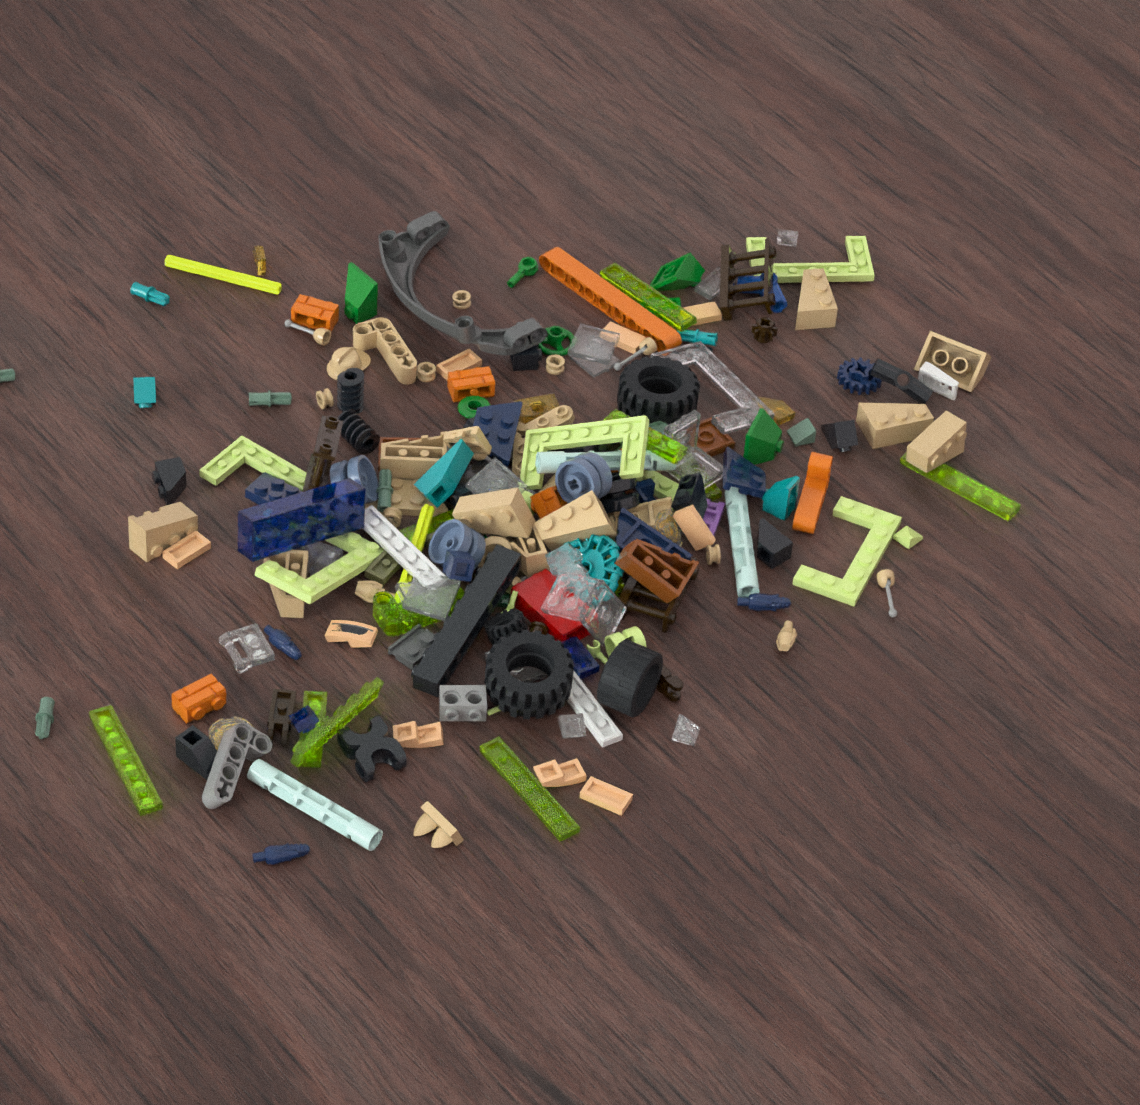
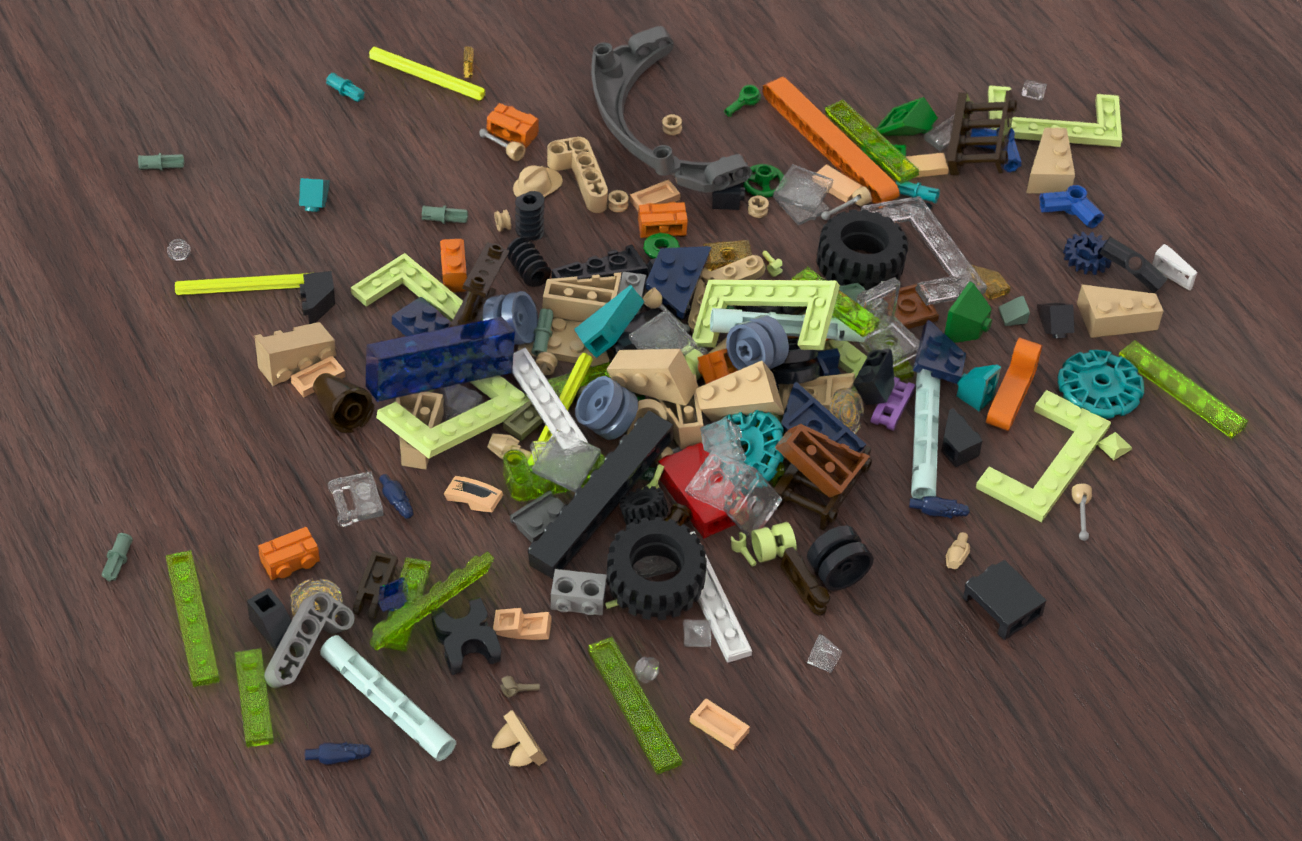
camera: 10 degrees right, 5 degrees up
(30, 453) = (178, 250): none -> clear plate
(95, 477) = (239, 284): none -> neon yellow axle
(196, 818) = (254, 698): none -> clear neon green plate
(217, 567) = (343, 402): none -> dark brown cone
(289, 441) = (453, 264): none -> orange brick
(360, 295) = (562, 110): green slope -> none
(420, 787) = (510, 687): none -> dark tan hand
(432, 427) = (606, 266): none -> black wing
(458, 565) = (601, 430): dark blue panel -> none
(471, 436) = (643, 284): tan wing -> none
(535, 757) = (647, 669): none -> clear plate
(556, 775) = (671, 692): light nougat slope -> none
(579, 413) = (774, 265): none -> yellowish green hand
(583, 661) = (719, 551): clear blue plate -> none
(629, 678) = (768, 586): black tyre -> none
(686, 650) = (840, 558): none -> black wheel
(694, 527) = (874, 411): light nougat tile -> none
(713, 554) = (891, 444): tan bush -> none
(764, 330) = (991, 190): dark brown gear -> none
(834, 668) = (1006, 597): none -> black panel
(839, 334) = (1074, 203): none -> blue piece
(905, 485) = (1100, 396): none -> teal plate
(938, 443) = (1163, 340): tan wedge -> none
(955, 359) = (1196, 245): tan slope -> none

